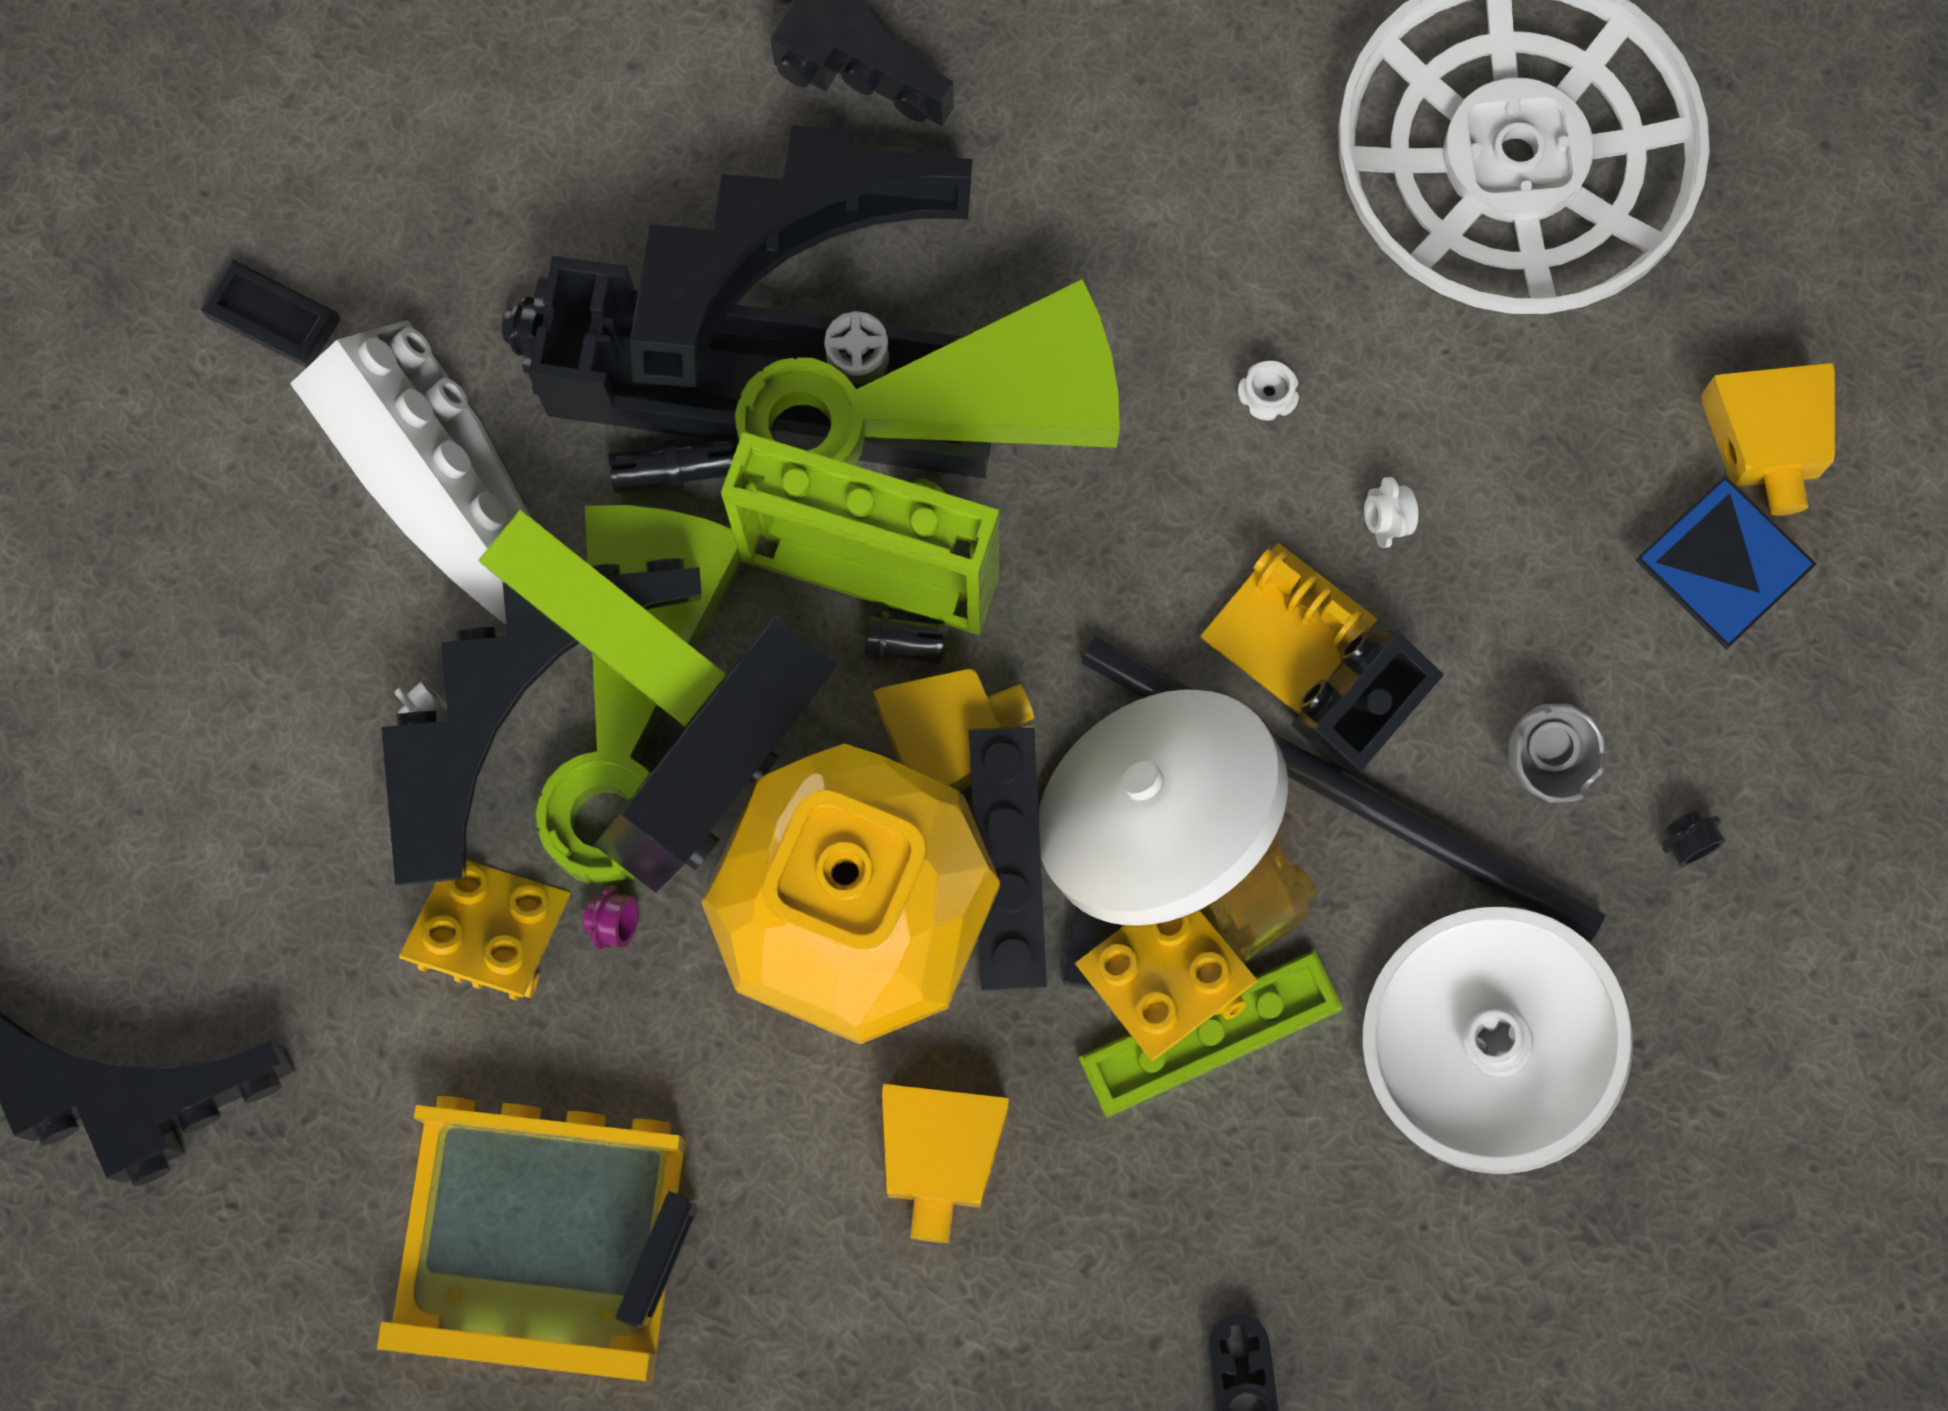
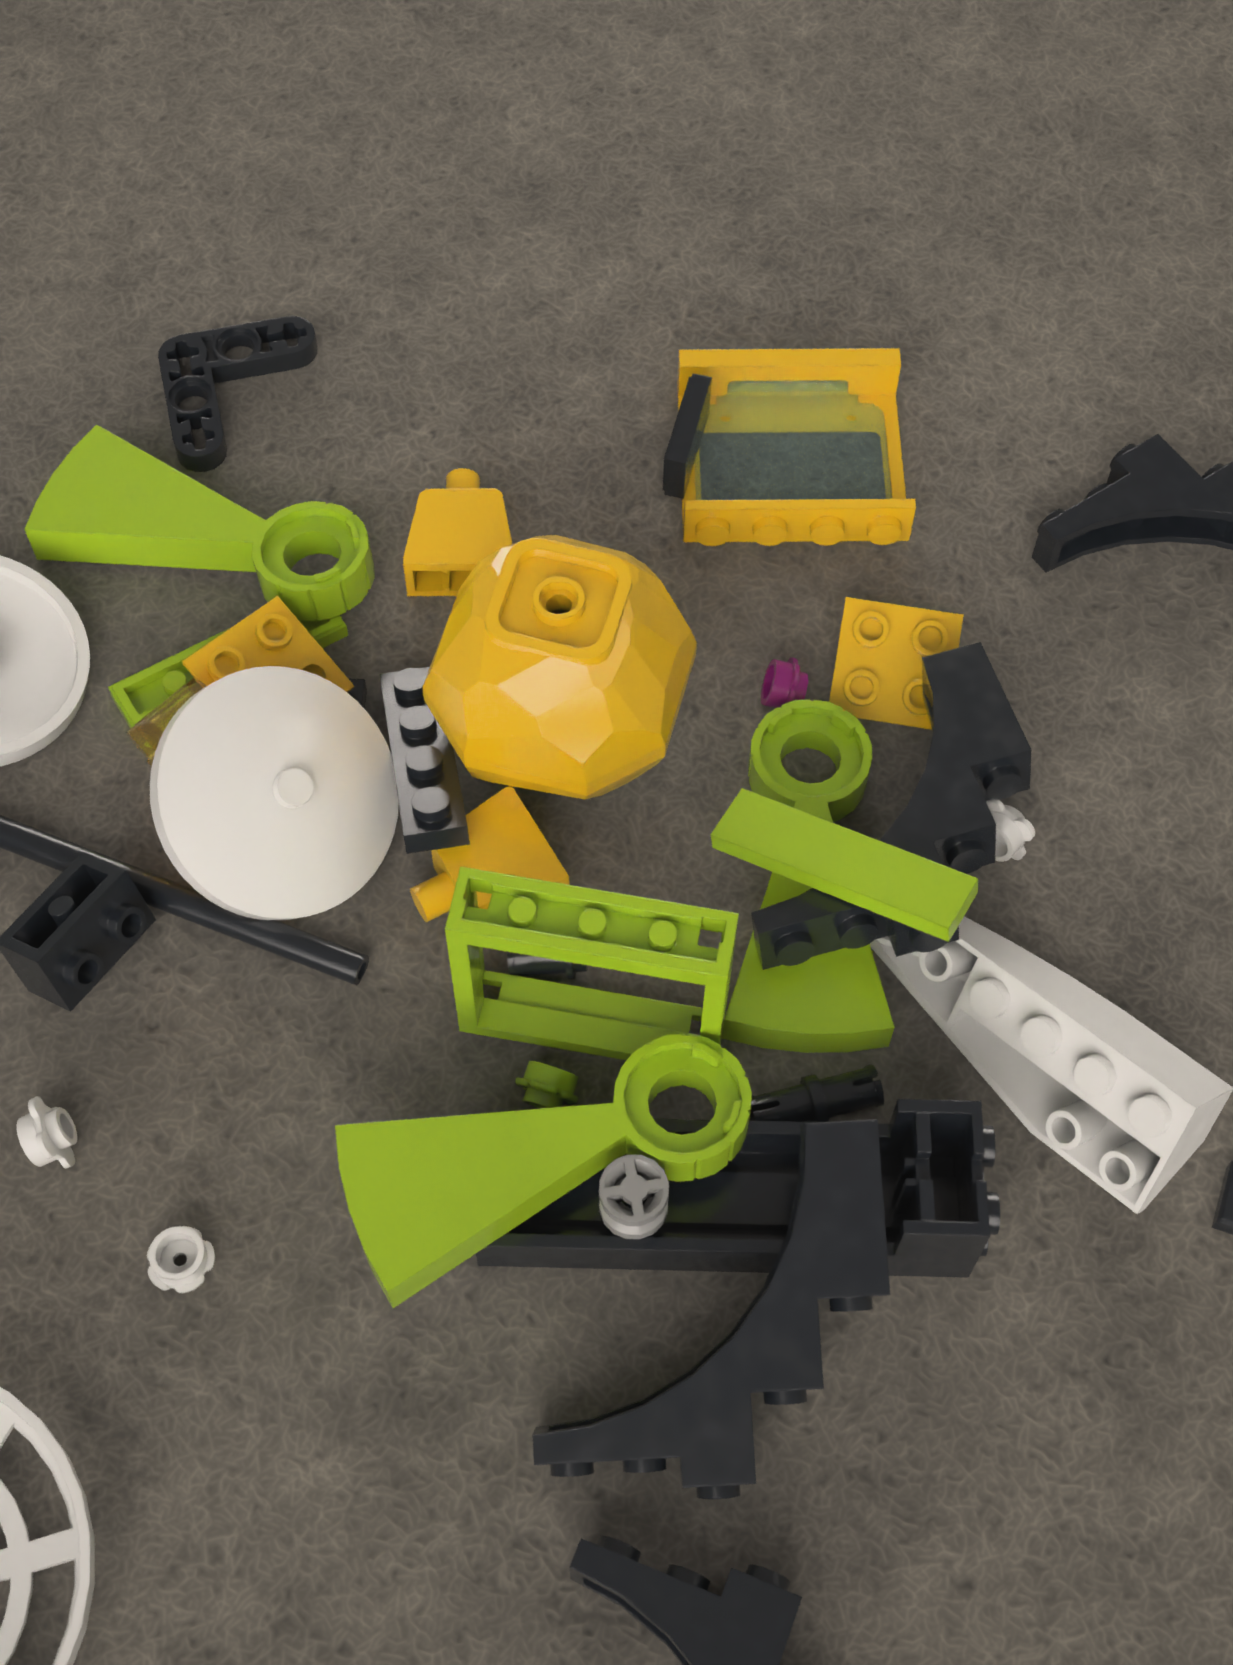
camera: 170 degrees right, 15 degrees down
(519, 323) = (1014, 1230): black plate -> none
(715, 757) = (723, 737): black brick -> none
(1287, 626) = (156, 1014): yellow hinge -> none
(1322, 1242) = (133, 509): none -> lime piece

